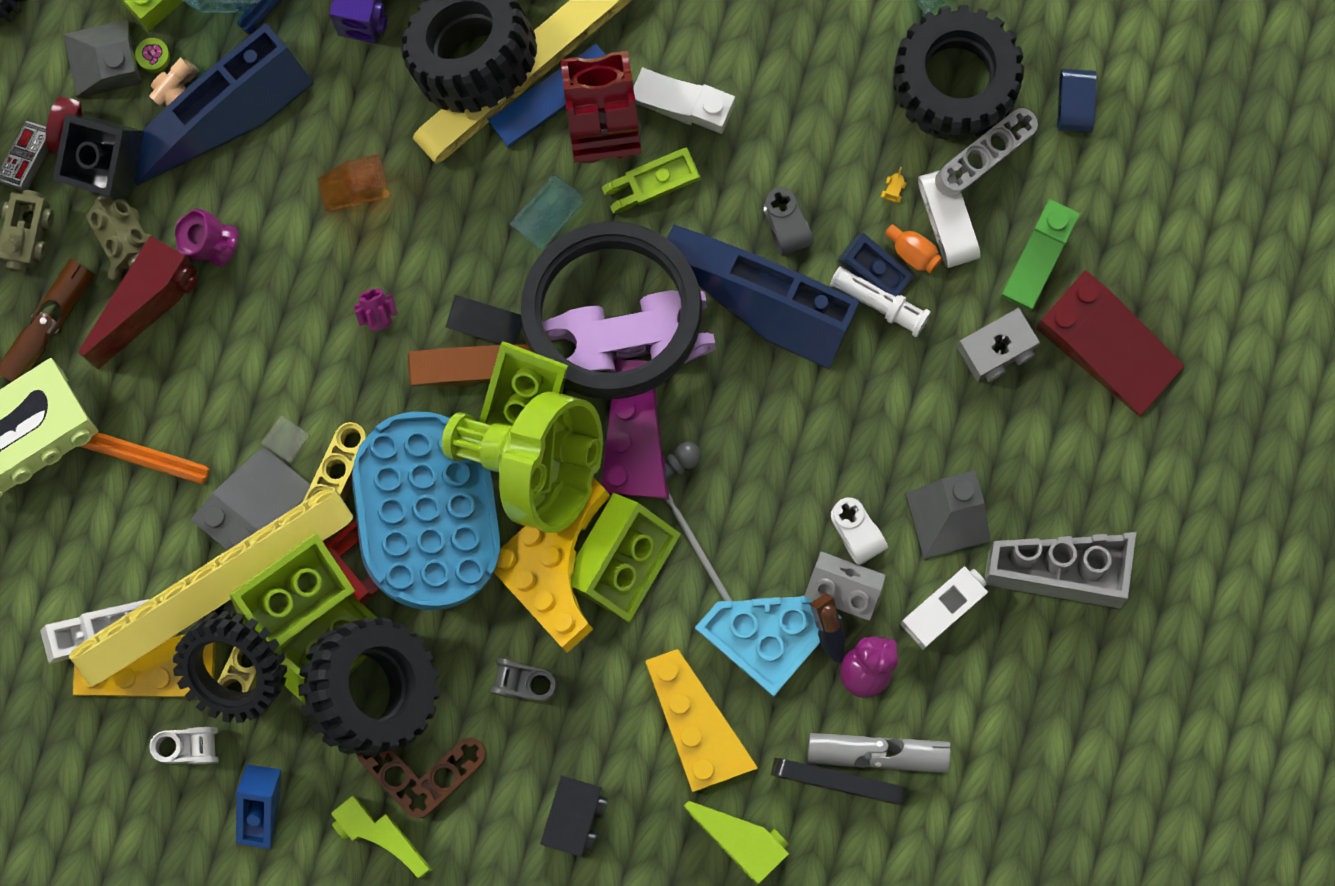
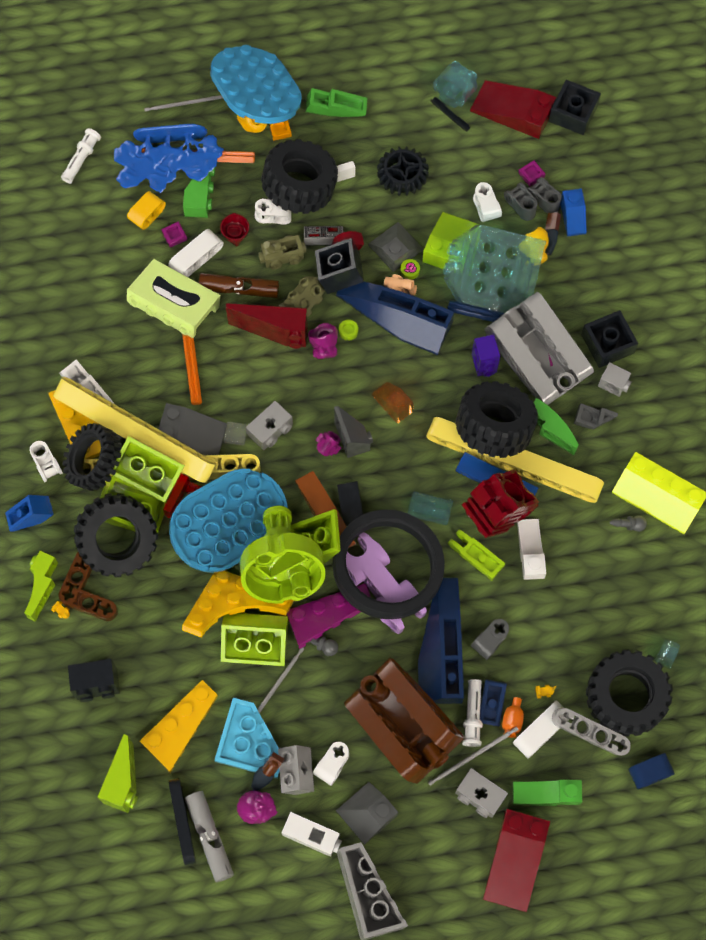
camera: 60 degrees right, 10 degrees down
(204, 194) = (348, 330): none -> lime tile
(289, 368) = (272, 415): none -> light grey brick
(377, 267) = (352, 433): none -> dark grey slope
(434, 823) = (63, 612): none -> yellow piece
(521, 682) = (159, 616): dark grey piece -> none
(851, 400) = (404, 721): none -> reddish brown panel
(941, 330) = (473, 756): none -> light grey piece

